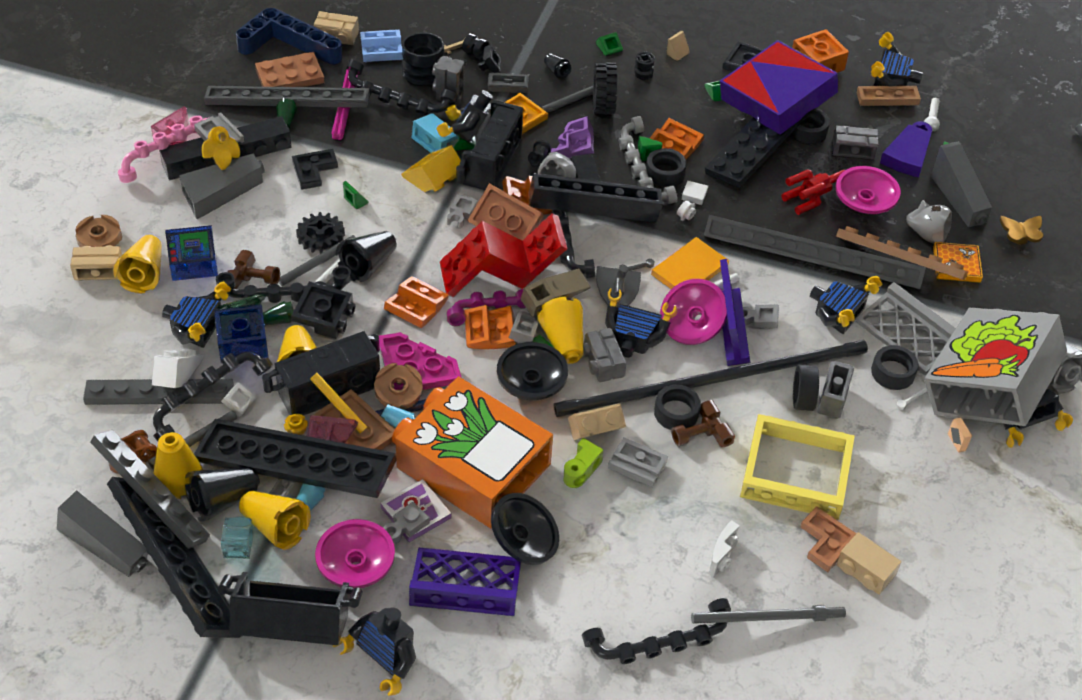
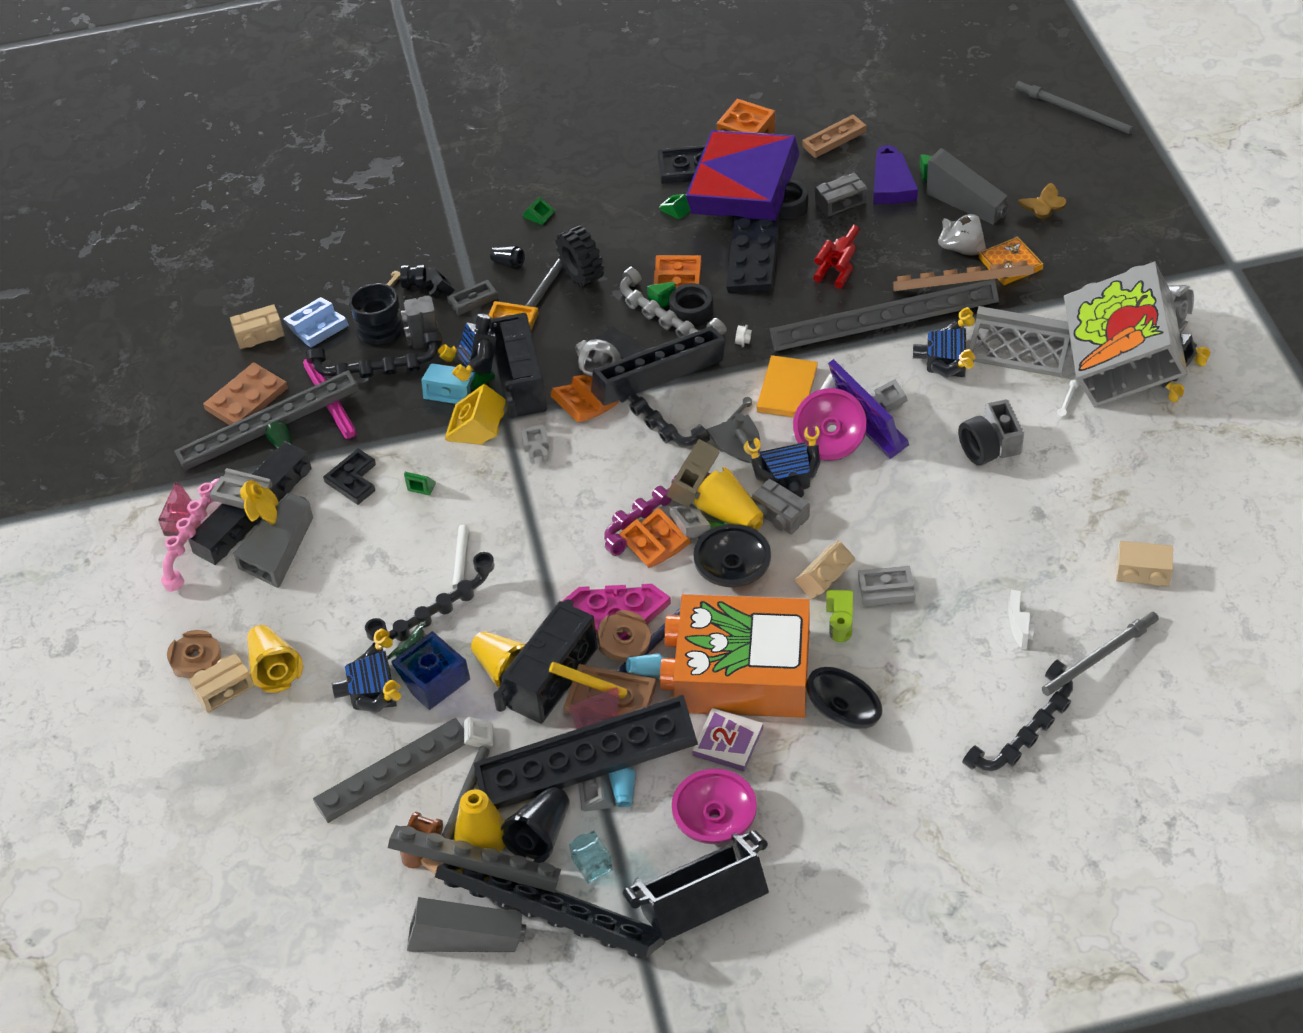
camera: 25 degrees left, 0 degrees up
(175, 367) = (399, 736): white slope -> none
(191, 252) = (314, 621): clear blue slope -> none
(210, 376) = (432, 746): black bar -> none
(245, 271) = (373, 609): reddish brown bar -> none
(276, 517) = (611, 816): yellow cone -> none
(279, 314) = (450, 629): dark green cone -> none
(290, 30) = (215, 352): dark blue beam -> none
(298, 428) = (551, 730): yellow plate -> none
(307, 266) = (438, 563): dark grey bar -> none
(320, 232) = (419, 535): black gear -> none
(324, 309) = (490, 604): black plate -> none
(365, 253) = (484, 531): black cone -> none
(386, 641) = (807, 864): black torso -> none
(408, 521) = (733, 751): light grey plate -> none
(416, 302) = (565, 551): orange slope -> none
(464, 596) = (834, 787): dark purple fence -> none
(503, 255) = (618, 463): red bracket -> none
(505, 213) = (587, 427): nougat plate -> none
(537, 152) = (563, 350): black bush -> none
(575, 405) = (791, 566): black piece -> none
(576, 138) = (585, 320): medium lavender slope -> none
(644, 65) = (591, 216): black wheel -> none
(677, 46) = (606, 182): tan slope -> none
(677, 393) = (883, 504): black tyre -> none
(694, 192) = (734, 315): white tile -> none
(710, 426) = (921, 520): reddish brown bar -> none
(792, 496) = (1033, 543): light yellow window -> none
(831, 535) = (1099, 557): nougat plate -> none
(868, 190) = (889, 233): dark pink dish -> none
(889, 379) = (1028, 395): black tyre -> none
(894, 67) = (820, 108): torso -> none
(932, 119) = (887, 138): white bar -> none
(959, 434) = (1131, 412): light nougat tile -> none

